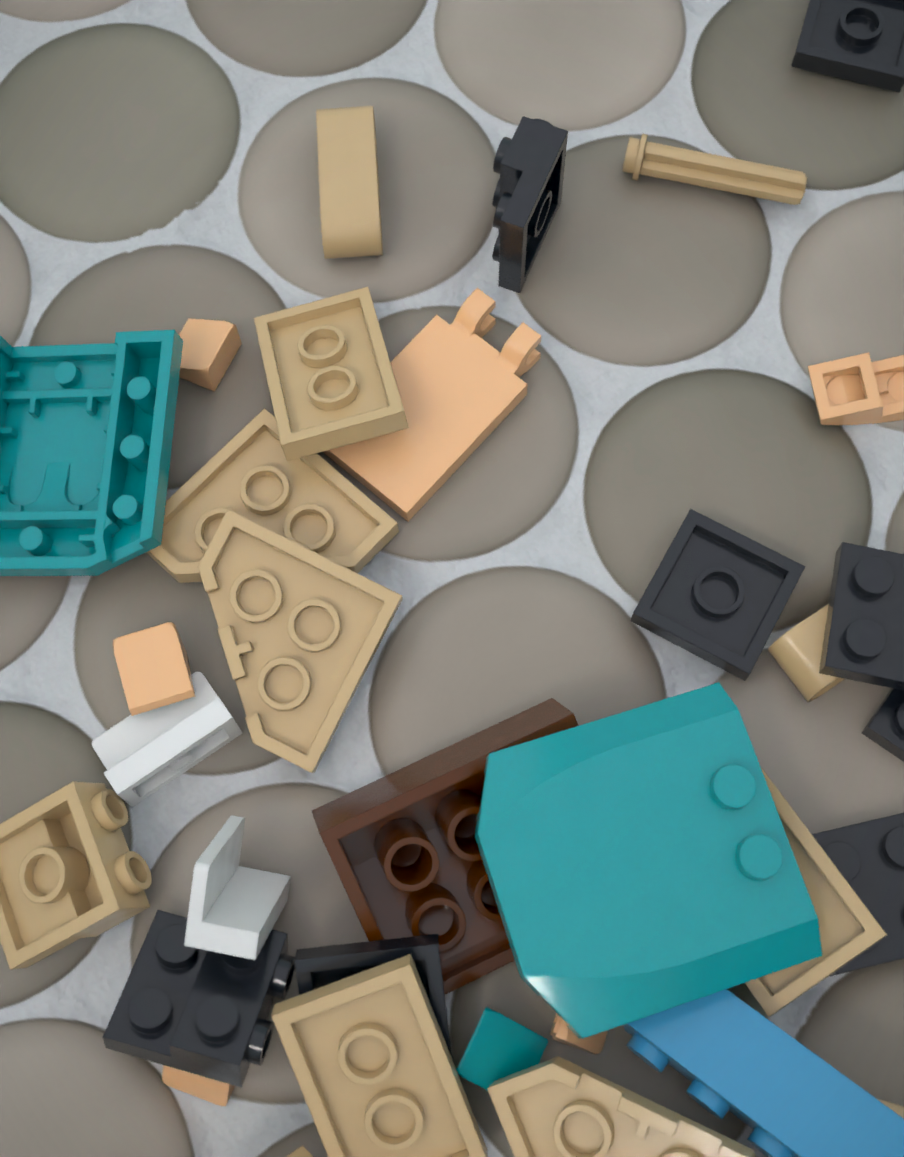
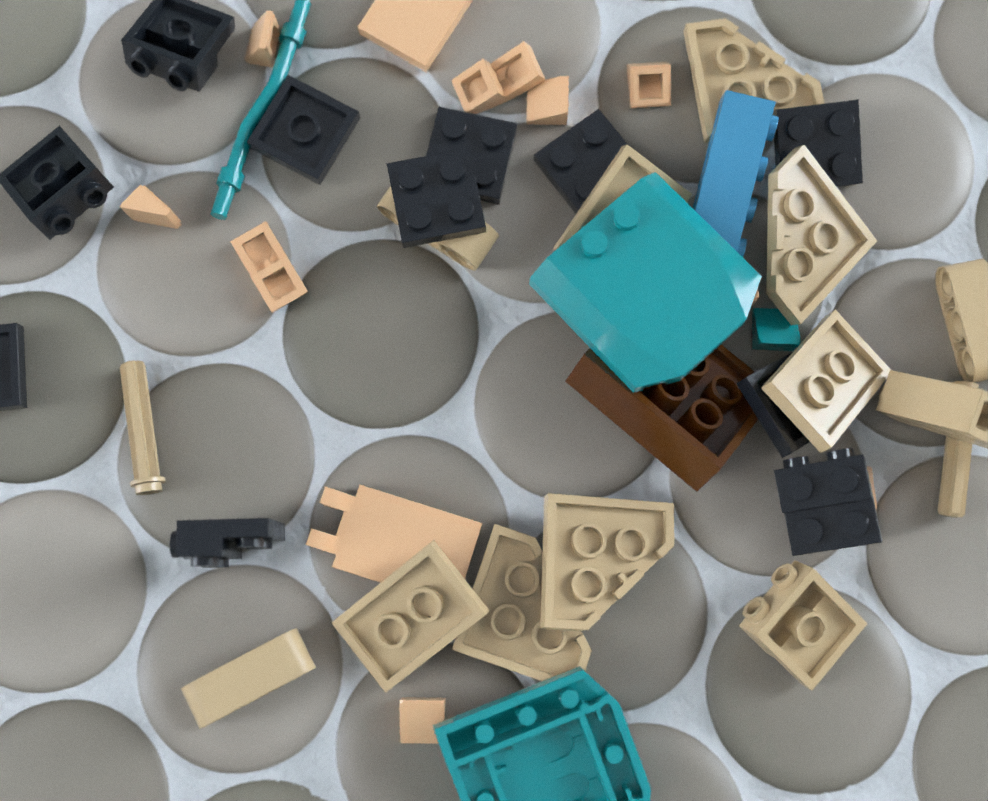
camera: 115 degrees left, 10 degrees up
(153, 668) = (656, 632): light nougat slope -> none
(164, 742) = (691, 606): white panel -> none
(229, 903) = (775, 502): white panel -> none
(717, 594) = (453, 311): black plate -> none

